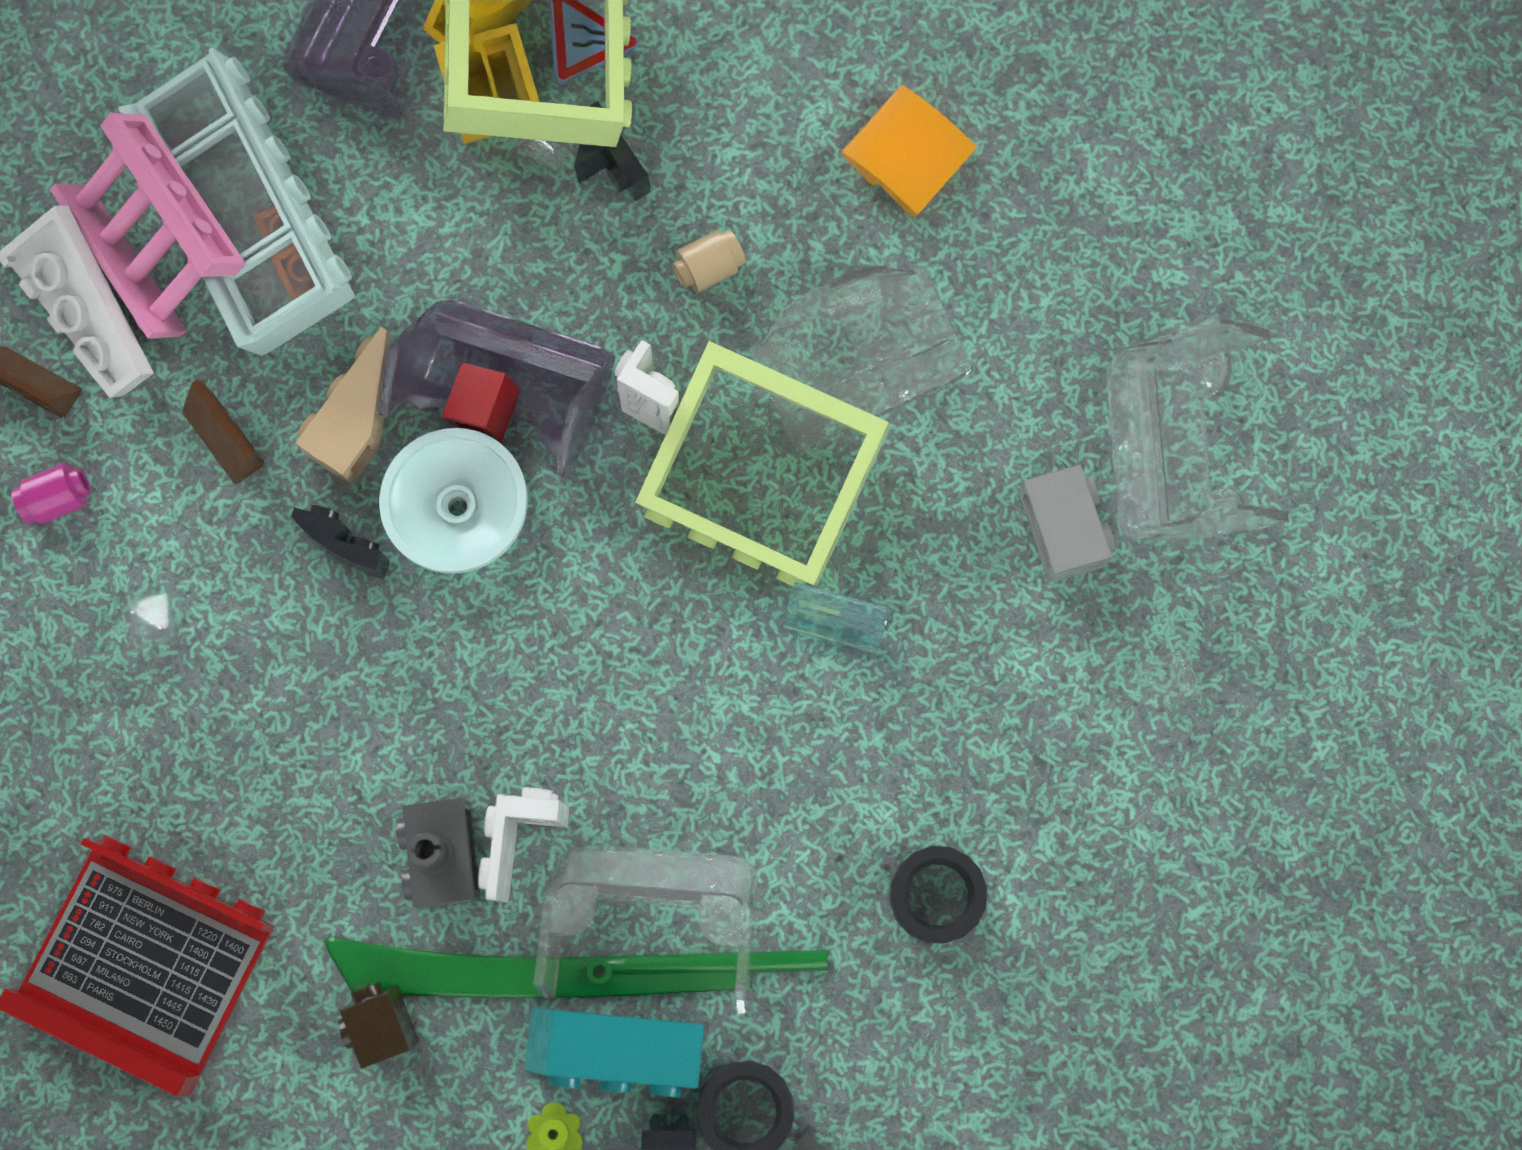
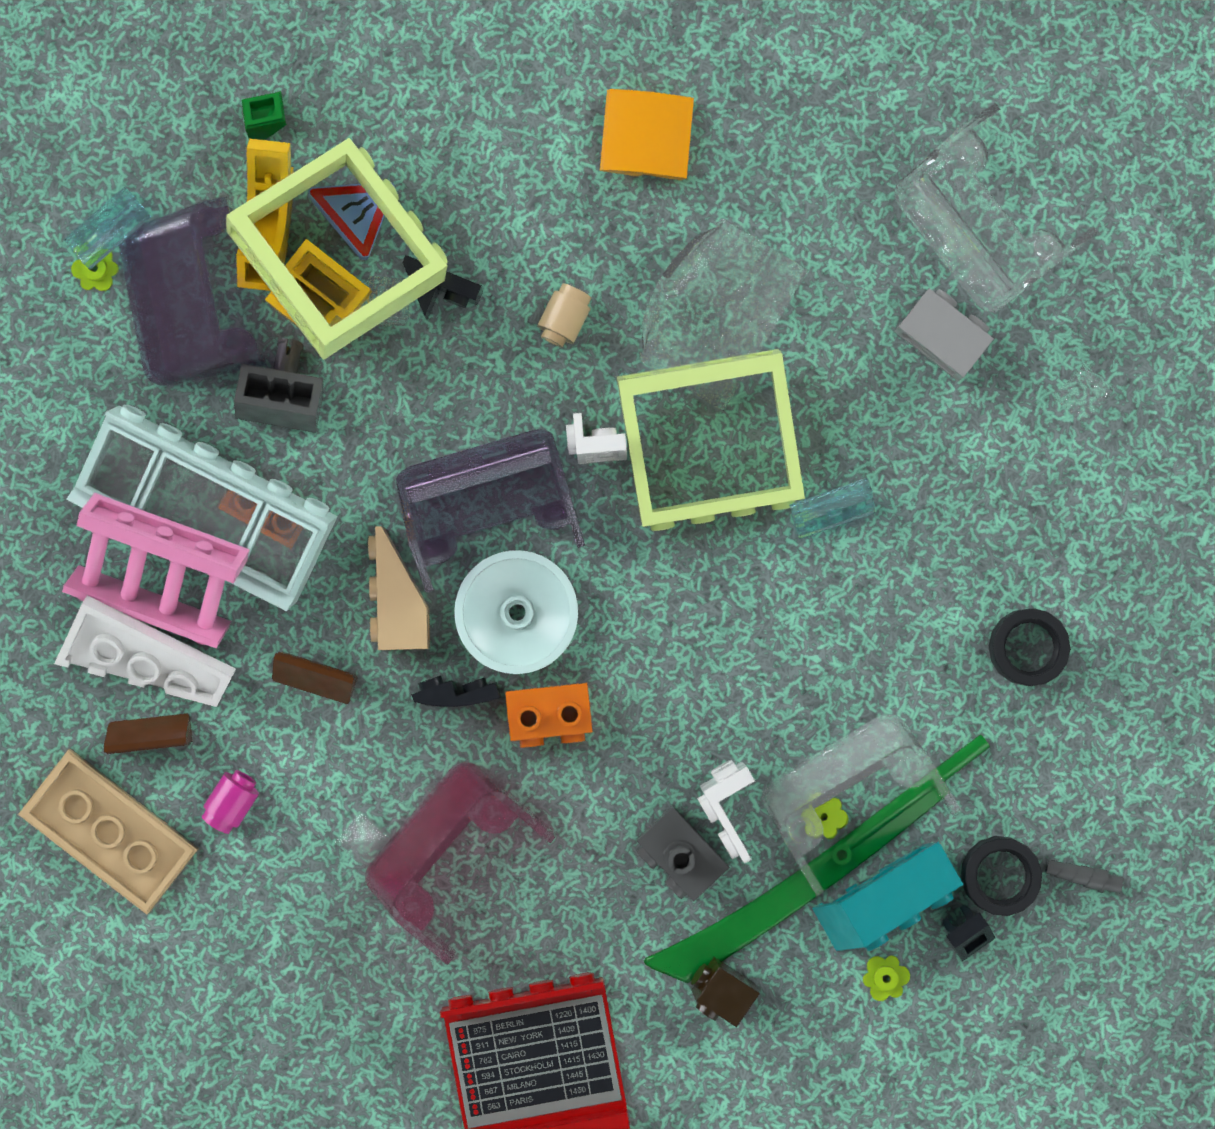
camera: 35 degrees left, 10 degrees up
(273, 645) = (459, 797): none -> clear pink windscreen
(387, 151) = (280, 394): none -> dark grey brick
(415, 622) = (549, 713): none -> orange brick
(481, 401) = (481, 529): red panel -> none
(620, 919) = (836, 816): none -> lime plant

